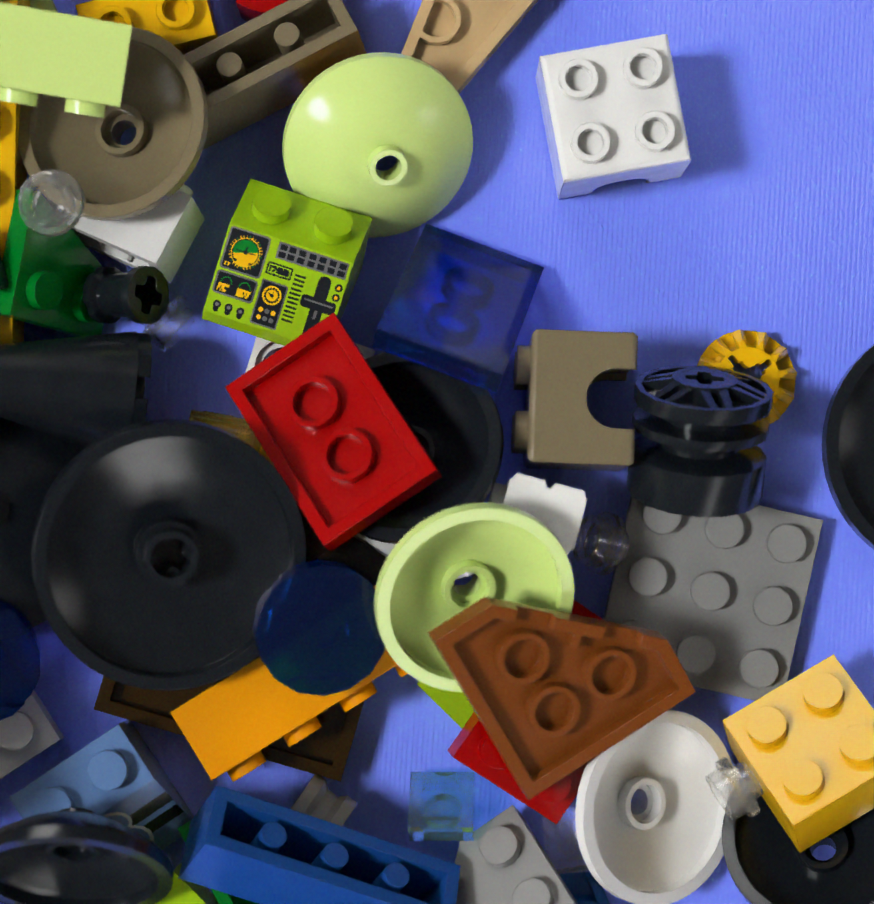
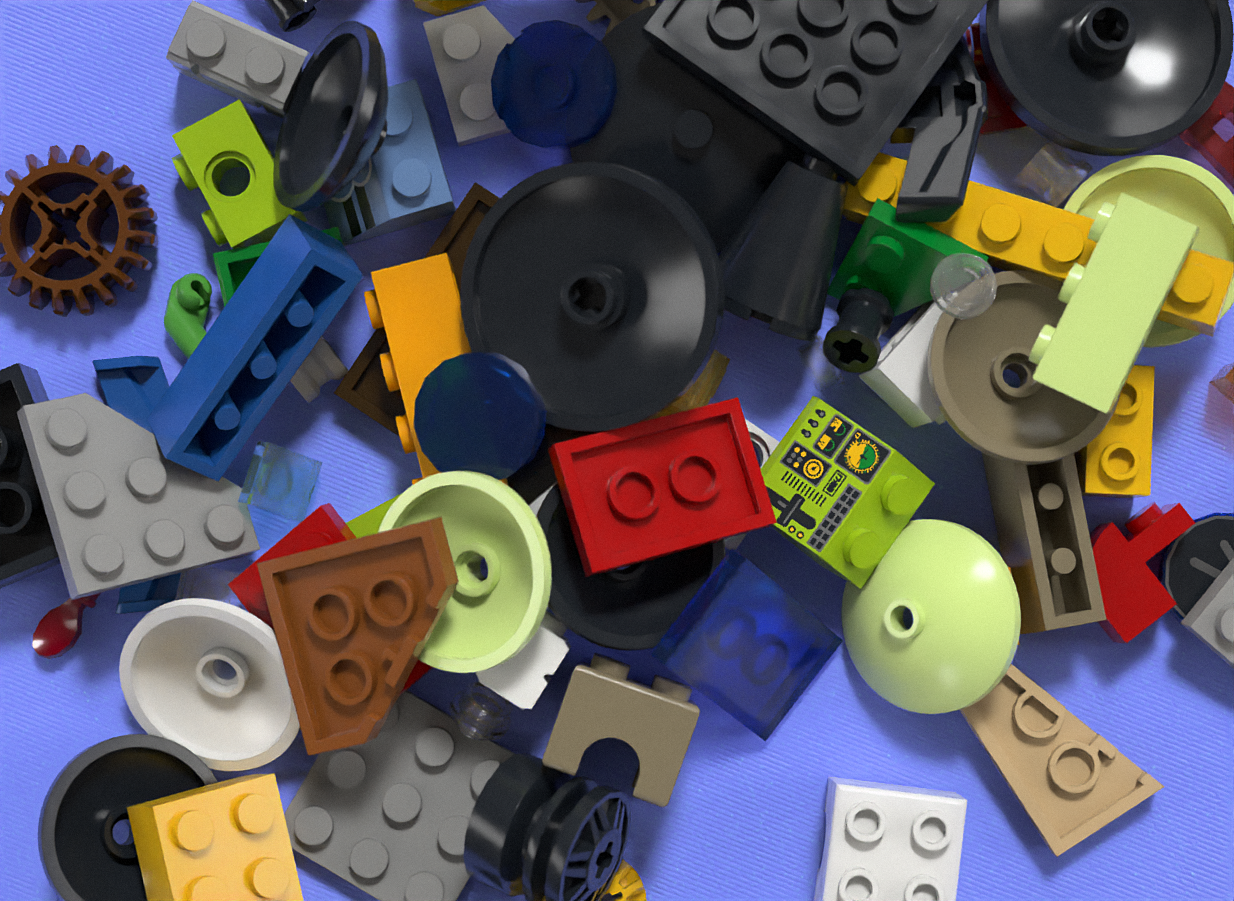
camera: 110 degrees right, 0 degrees up
(735, 788) = (206, 765): clear plate -> none

